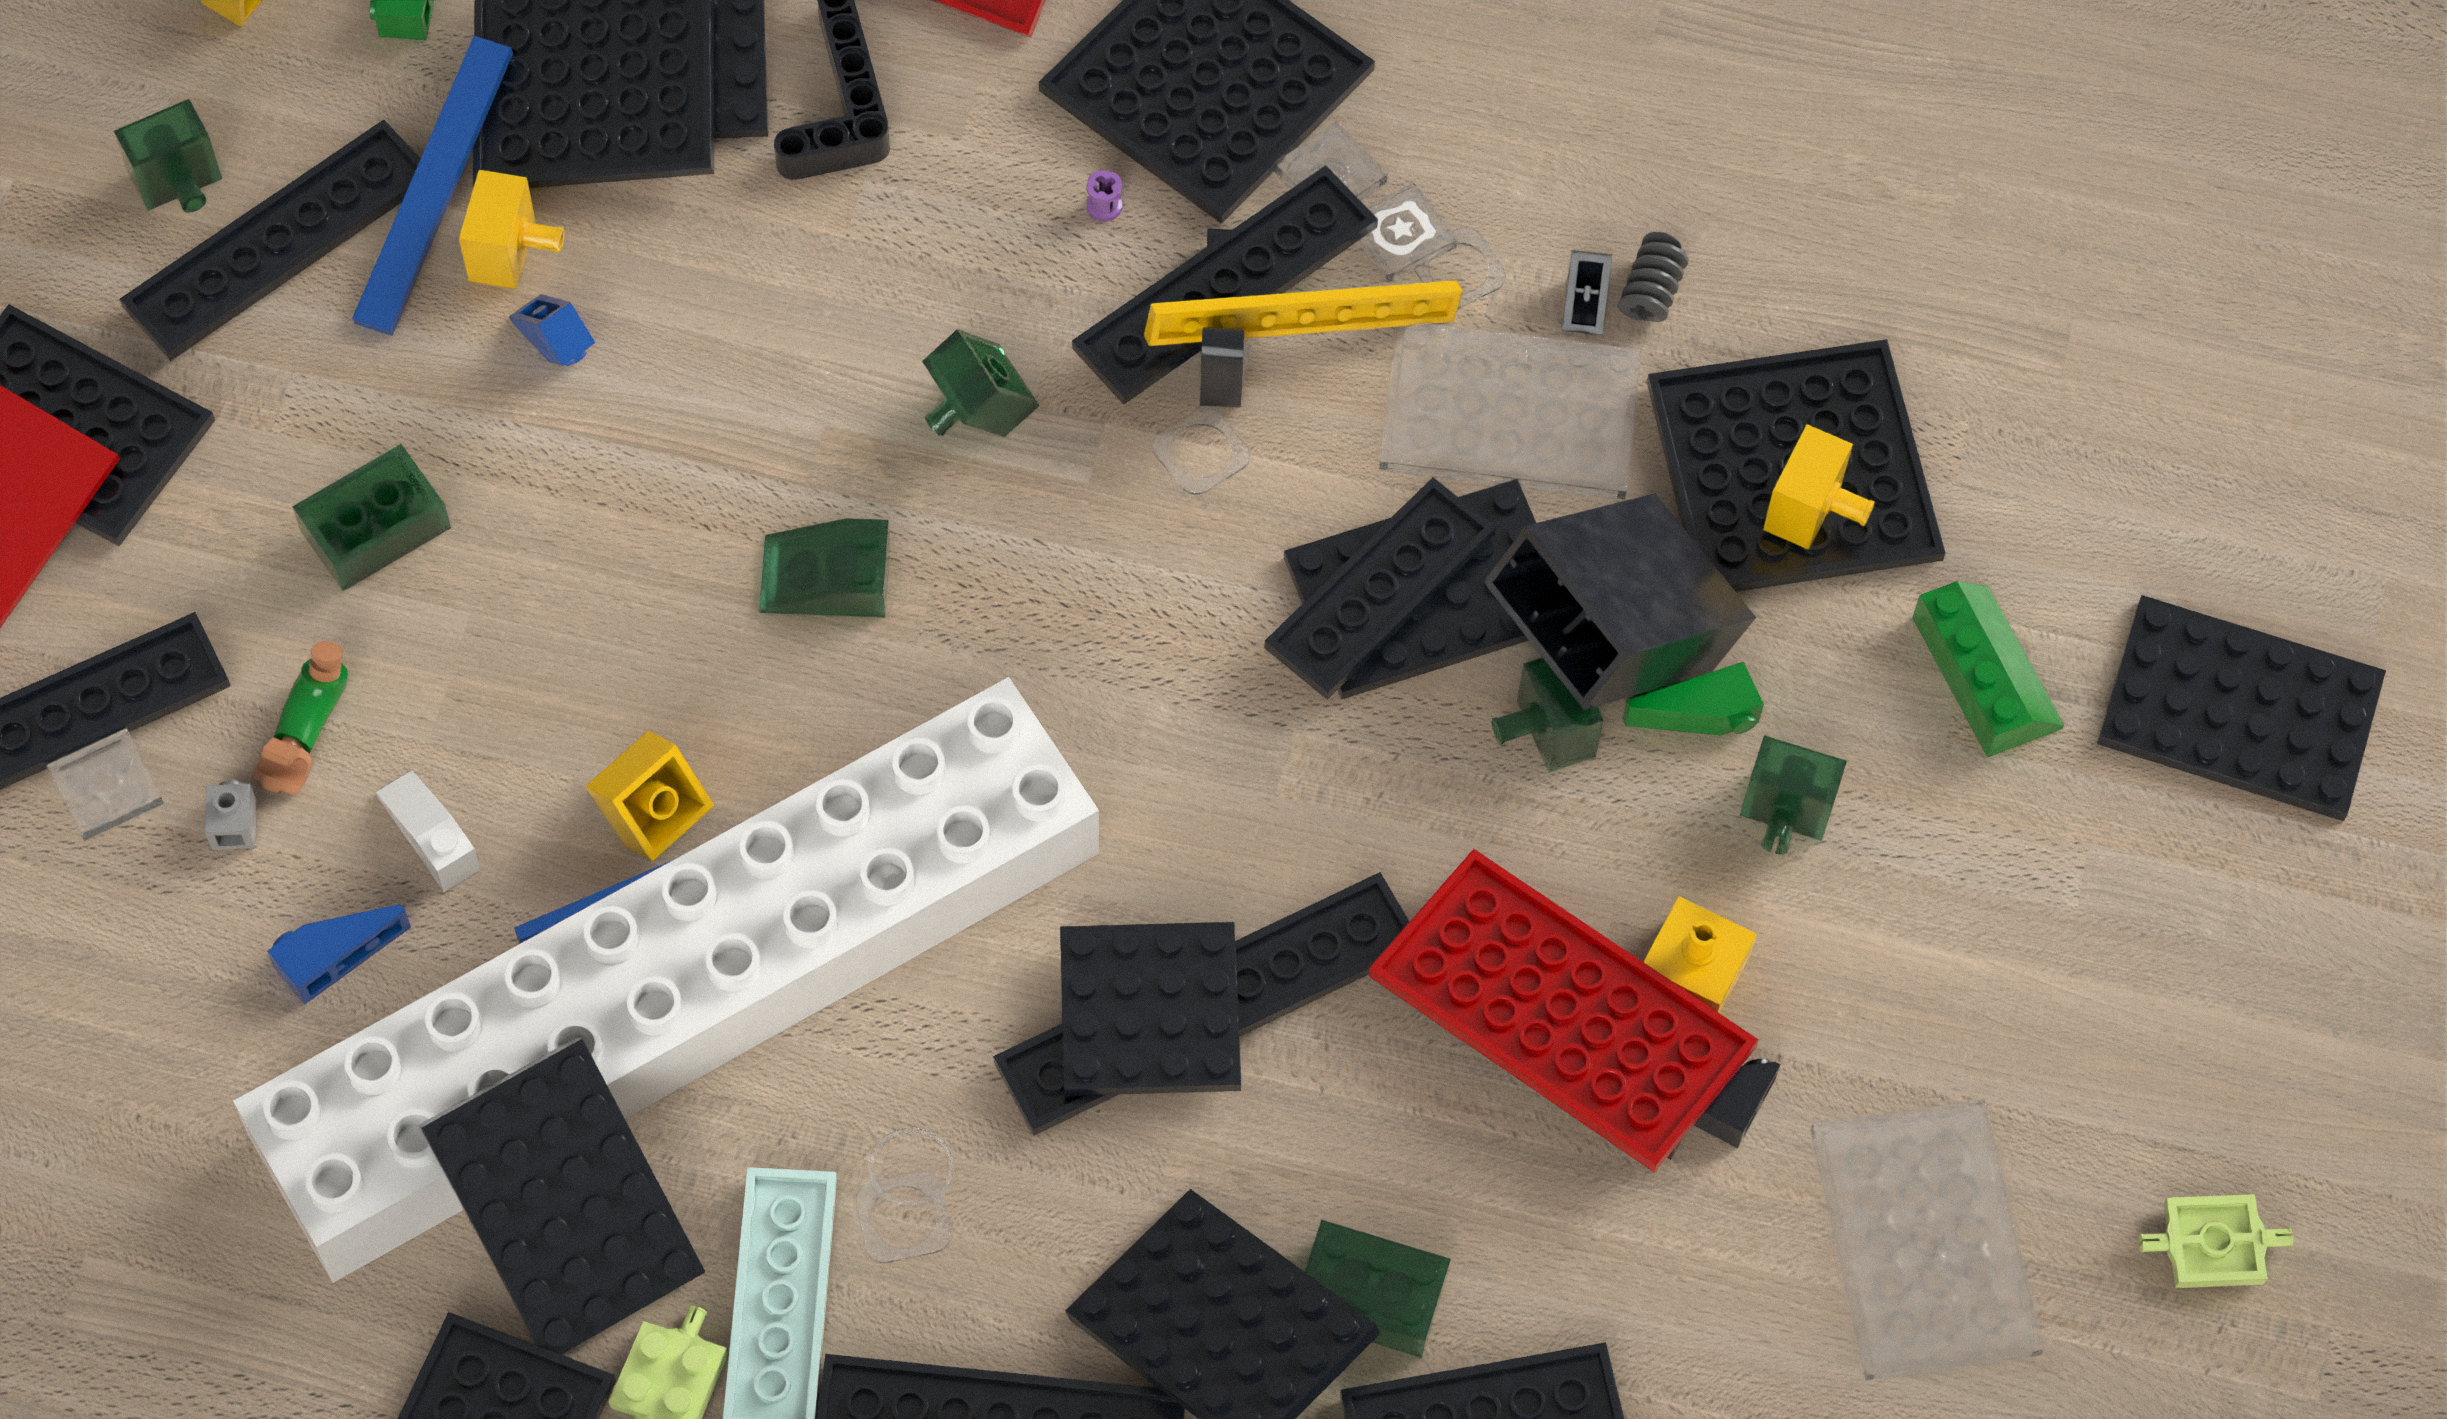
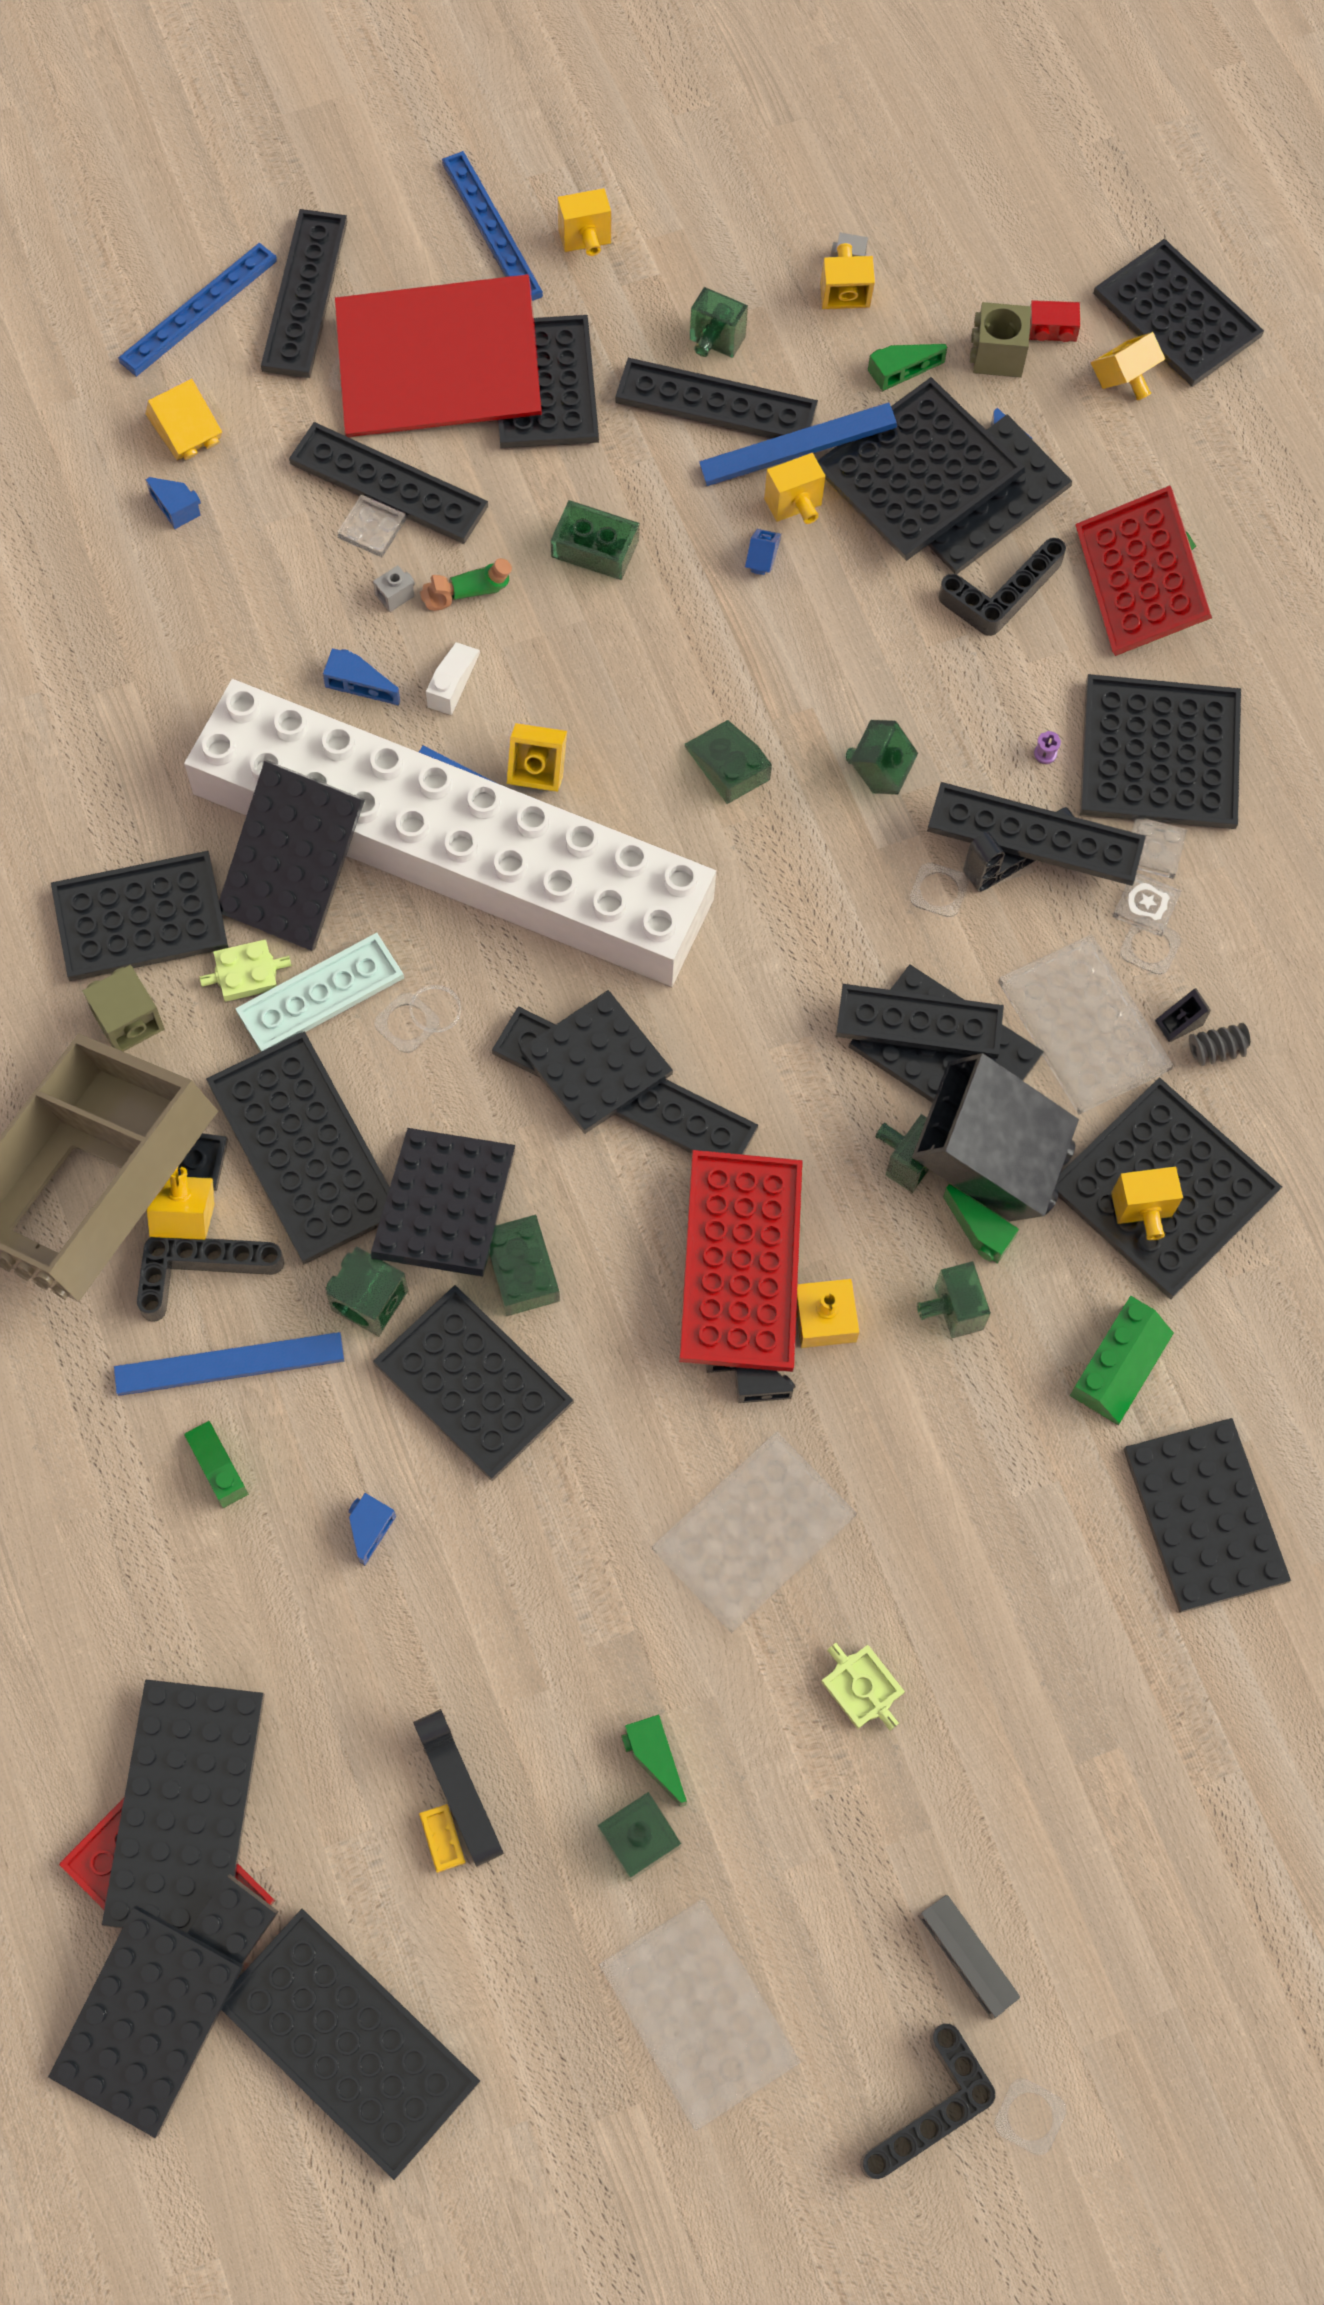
camera: 55 degrees right, 5 degrees up
(1305, 312) = (1049, 882): yellow plate -> none

